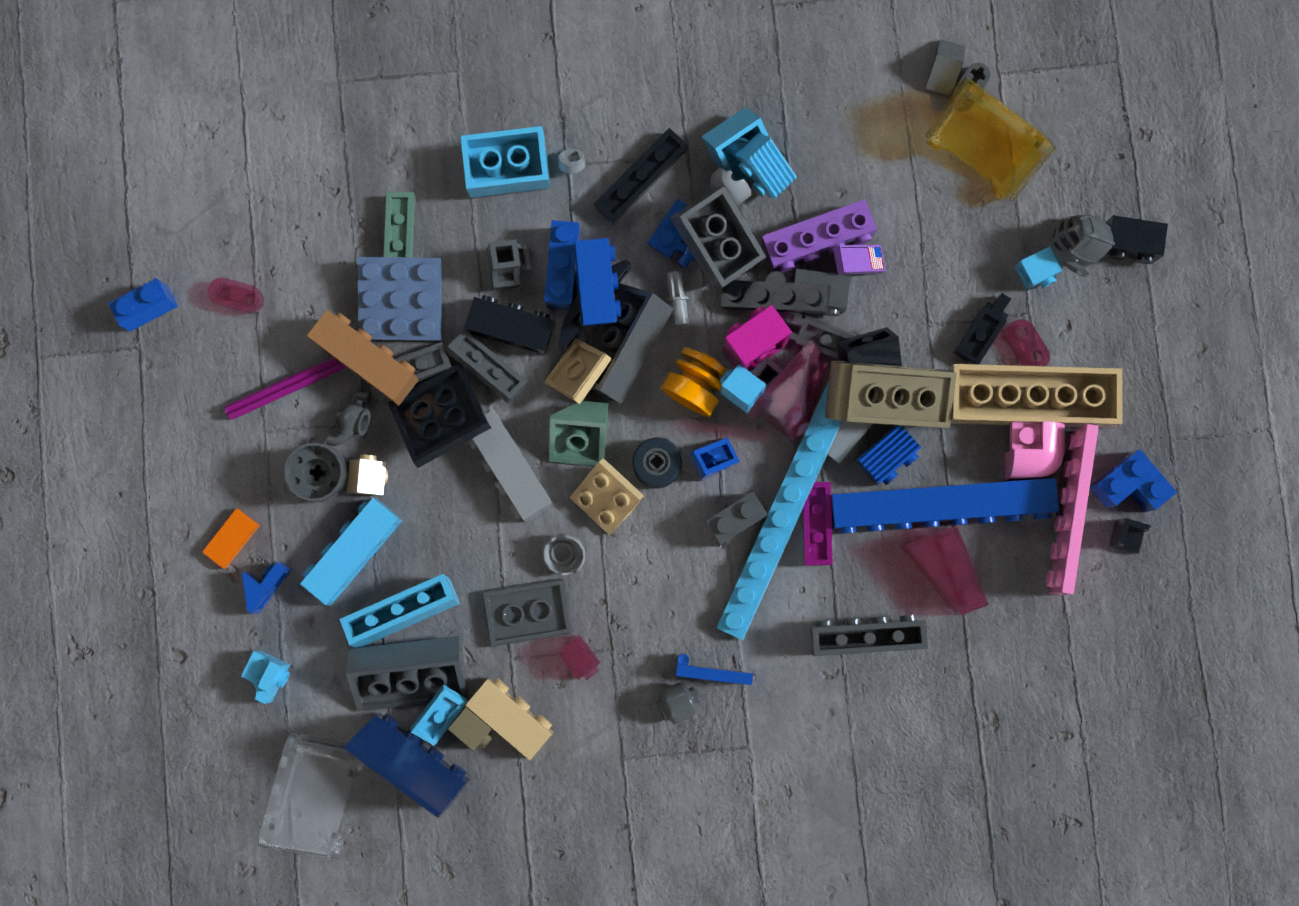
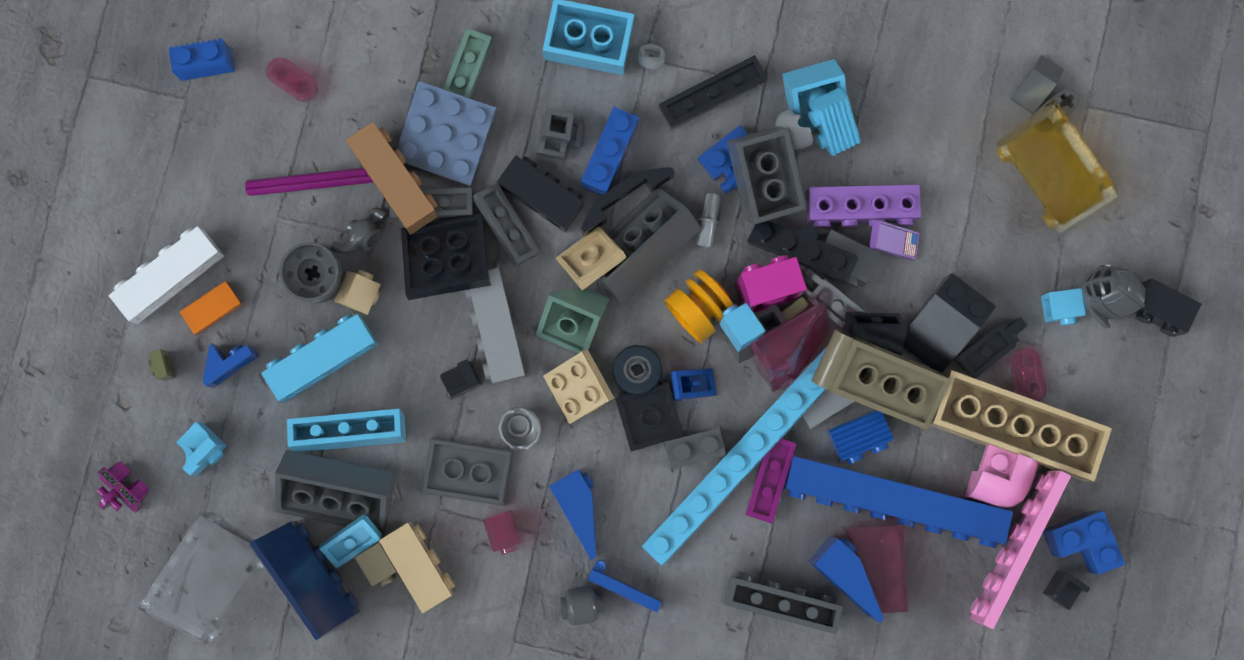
camera: 10 degrees right, 0 degrees up
(178, 521) = (166, 275): none -> white brick
(192, 731) = (112, 479): none -> magenta hips
(201, 608) = (161, 365): none -> olive plate
(491, 527) = (460, 379): none -> black panel
(596, 282) = (636, 179): blue brick -> none
(641, 606) = (576, 501): none -> blue slope
(683, 503) = (649, 417): none -> black plate
(787, 355) = (794, 309): none -> olive tile
(915, 586) = (845, 571): none -> blue slope
(934, 321) = (946, 322): none -> black slope

